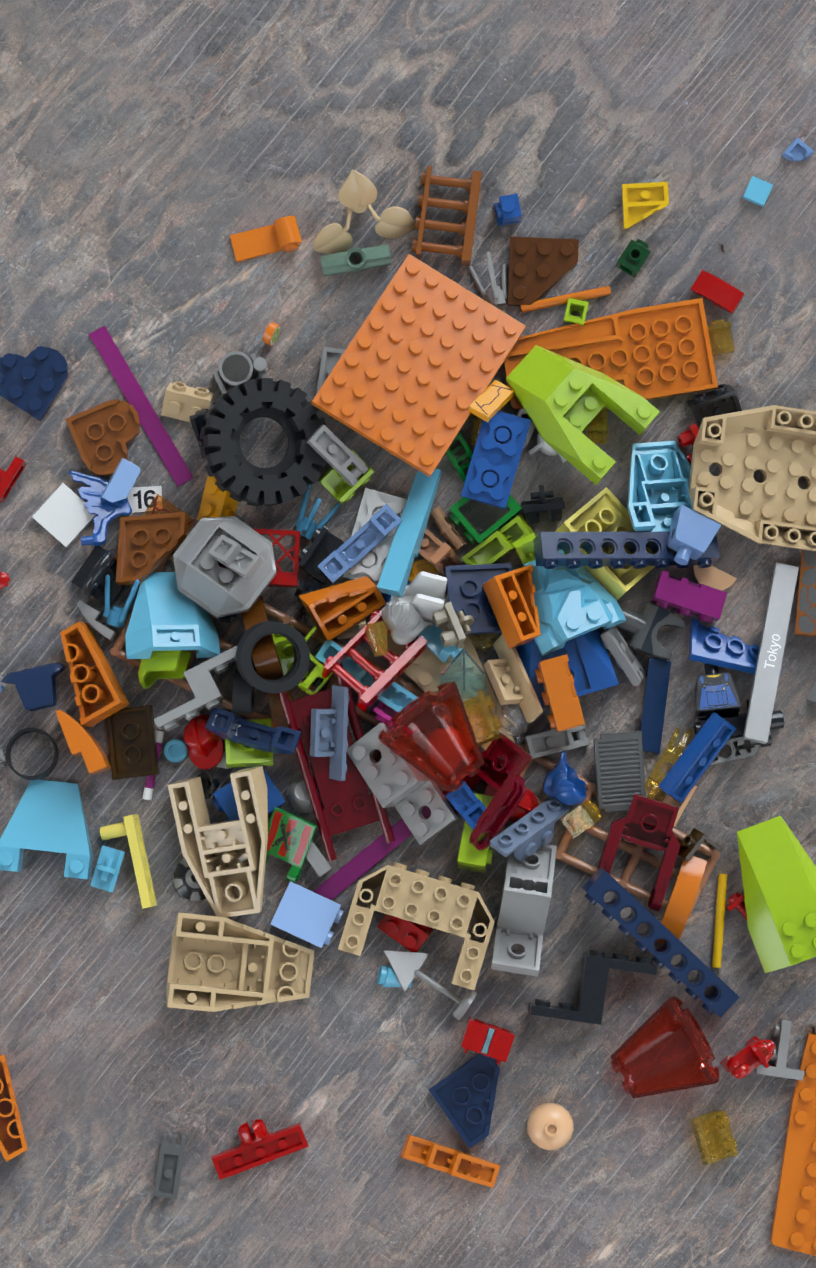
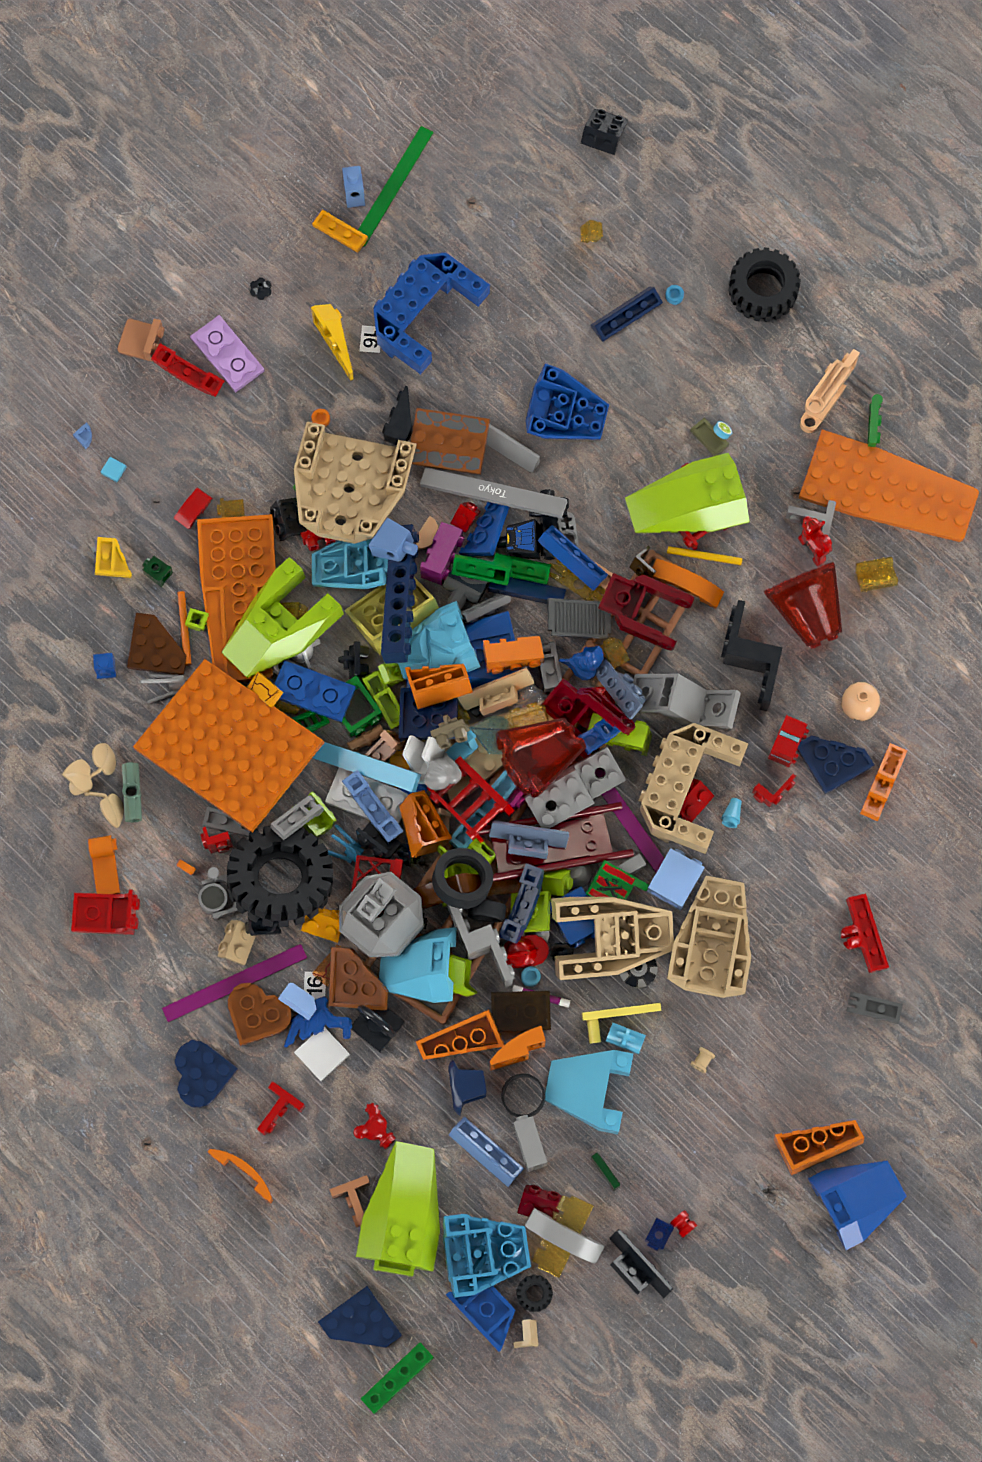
camera: 85 degrees left, 10 degrees down
(90, 962) = (702, 1060): none -> tan bush
(92, 617) = (411, 1035): light grey slope -> none
(118, 615) = (413, 1013): dark azure plant -> none
(208, 247) = (105, 913): none -> red bracket
(286, 772) = (557, 882): none -> lime brick
(299, 356) = (217, 843): none -> red bracket
(378, 638) = (454, 793): clear yellow cone -> none
(407, 965) = (725, 801): light grey piece -> none
(419, 1011) = (762, 795): none -> red bracket
(468, 207) = (99, 695): dark orange fence -> none
(674, 671) = (501, 569): none -> green bracket
(722, 996) = (764, 556): dark blue brick -> none
(740, 622) = (465, 516): none -> red bracket

